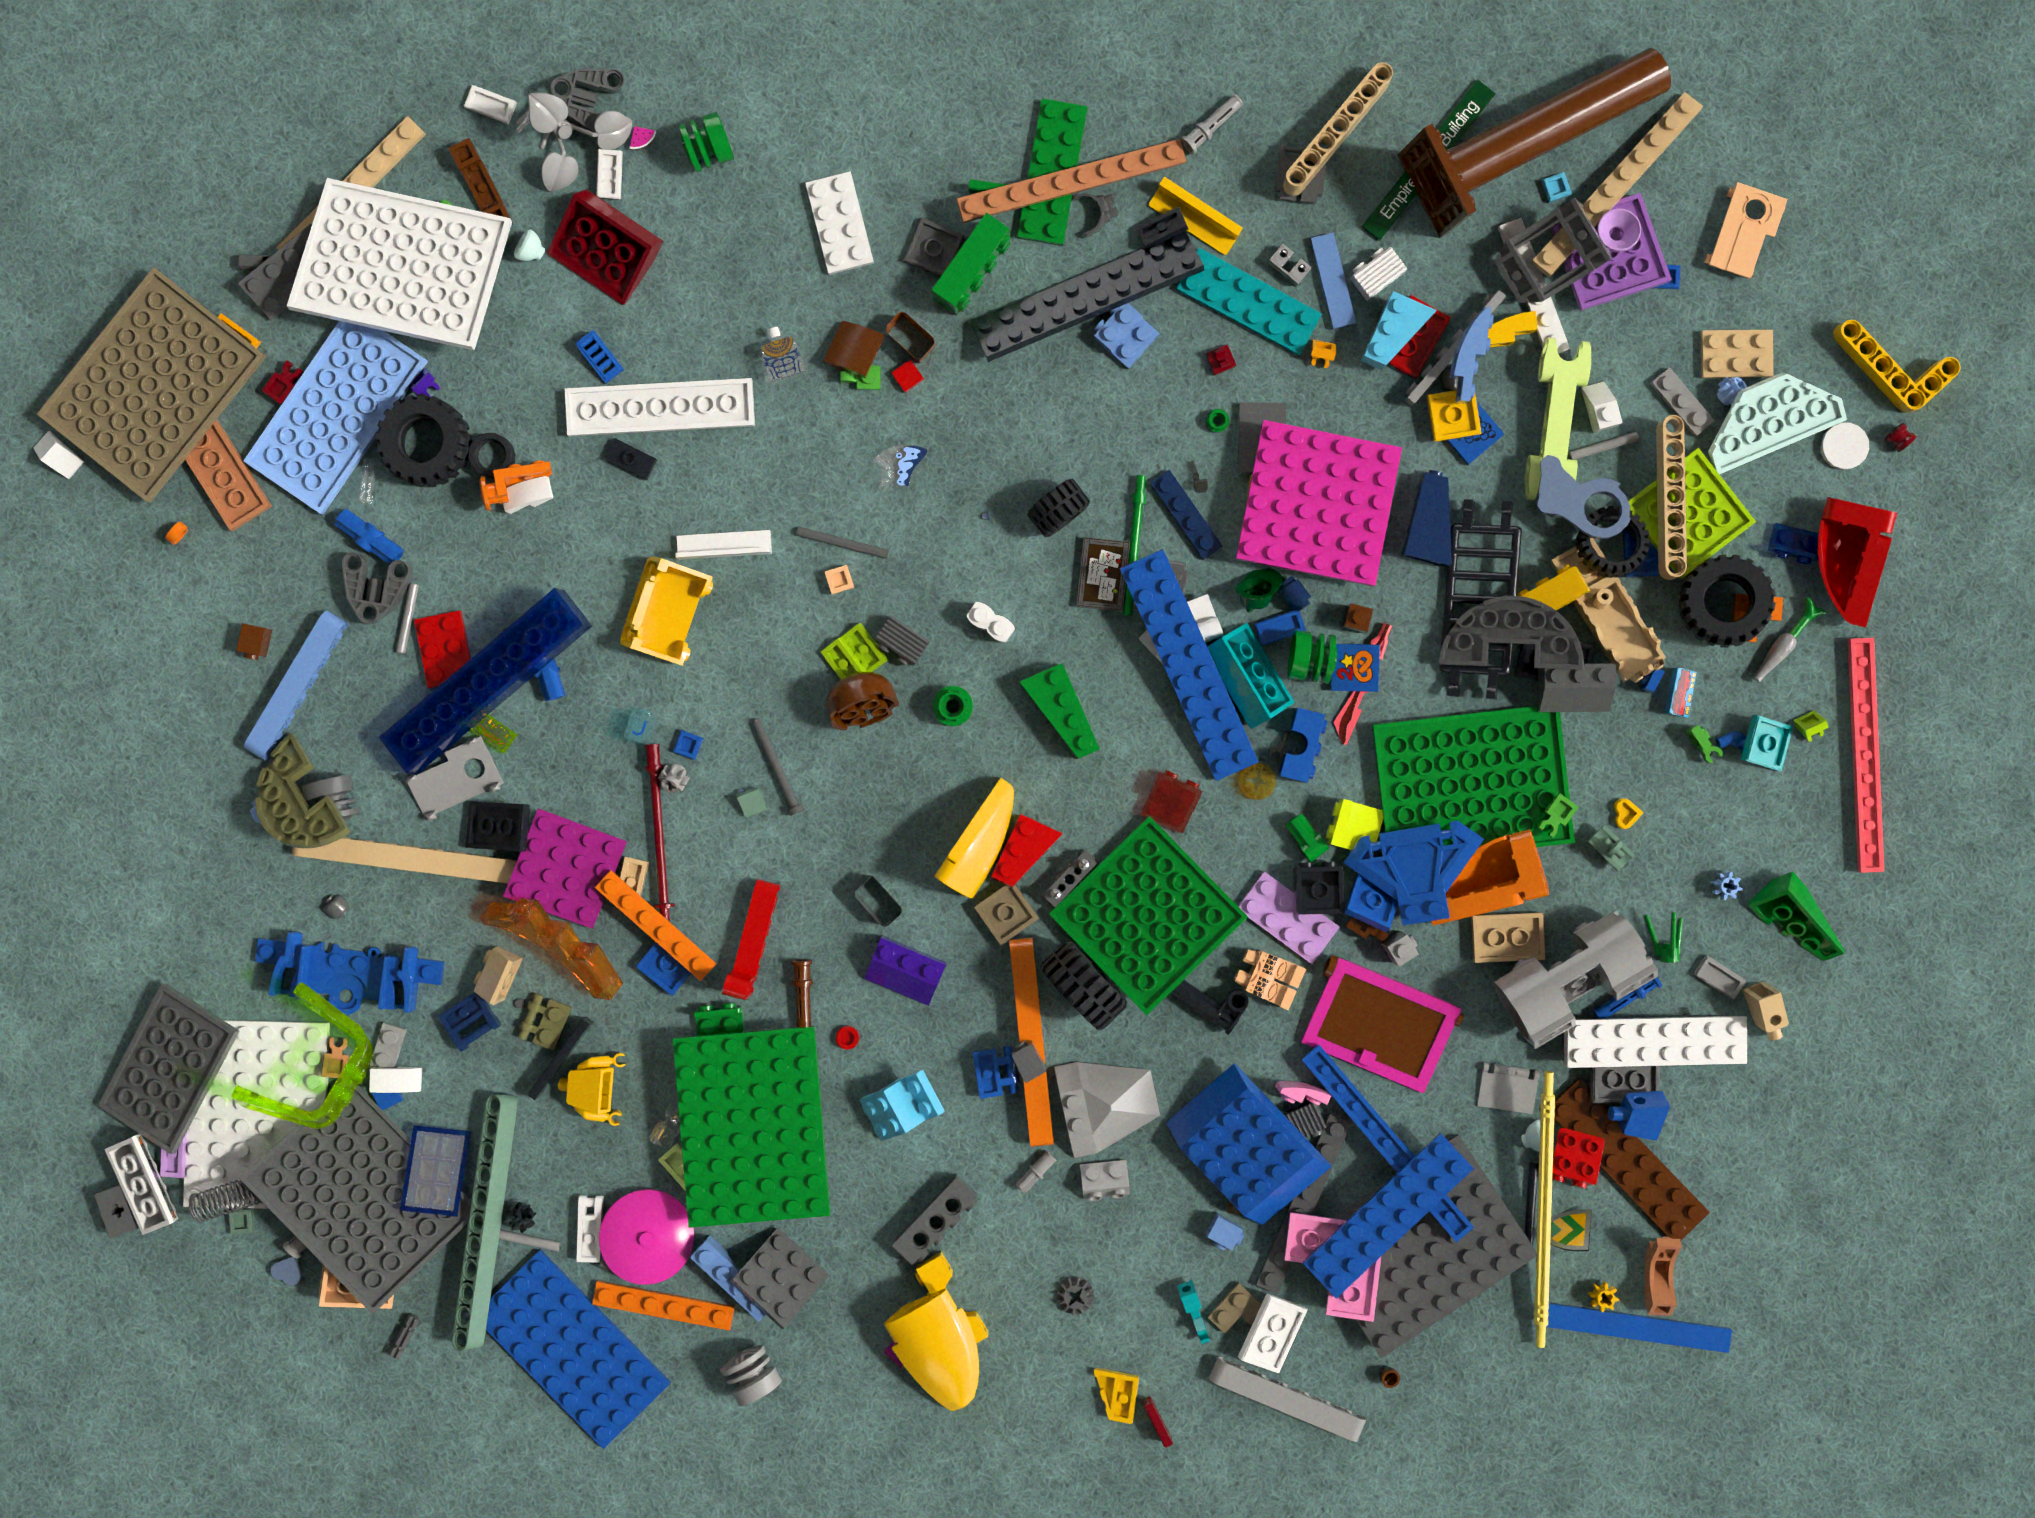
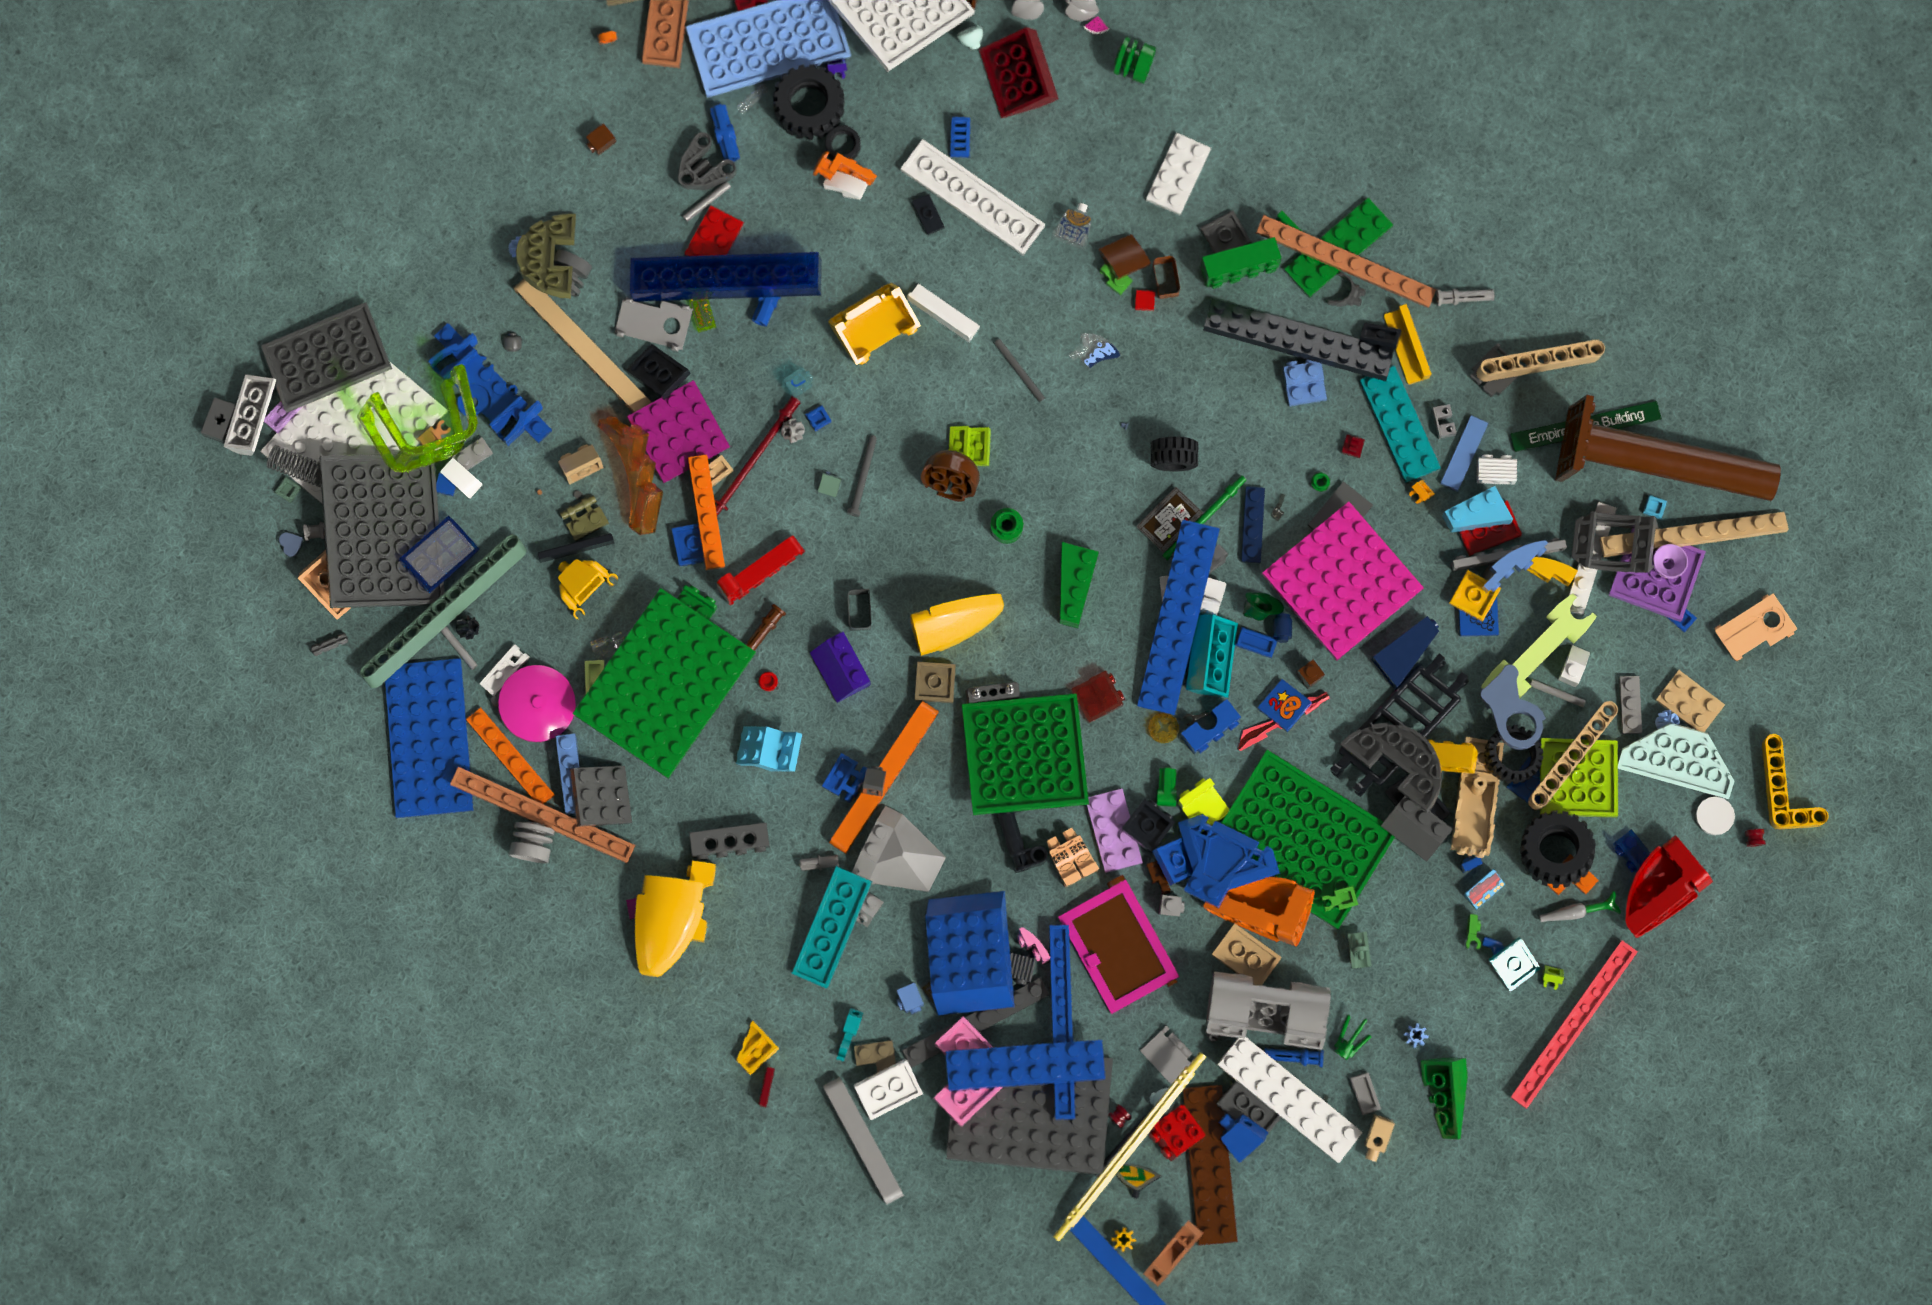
camera: 30 degrees right, 10 degrees down
(294, 685) = (602, 186): medium blue beam -> none
(465, 1014) = (538, 472): dark blue plate -> none
(609, 174) = (1058, 32): white plate -> none
(736, 1339) = (542, 814): none -> nougat plate
(839, 579) = (998, 391): light nougat plate -> none
(901, 640) = (1007, 460): dark grey brick -> none
(985, 619) = (1076, 498): white brick -> none
(1024, 848) = (979, 650): red wing -> none
(1074, 1284) = (787, 968): dark grey gear -> none
(1083, 985) = (949, 761): black tyre -> none
(1098, 1226) = (832, 927): none -> teal plate
(1312, 657) = (1261, 674): green wheel -> none
(1391, 1379) = (941, 1184): reddish brown hinge -> none
(1508, 1184) = (1119, 1116): none -> dark red wheel
(1626, 813) = (1387, 939): yellow tile -> none

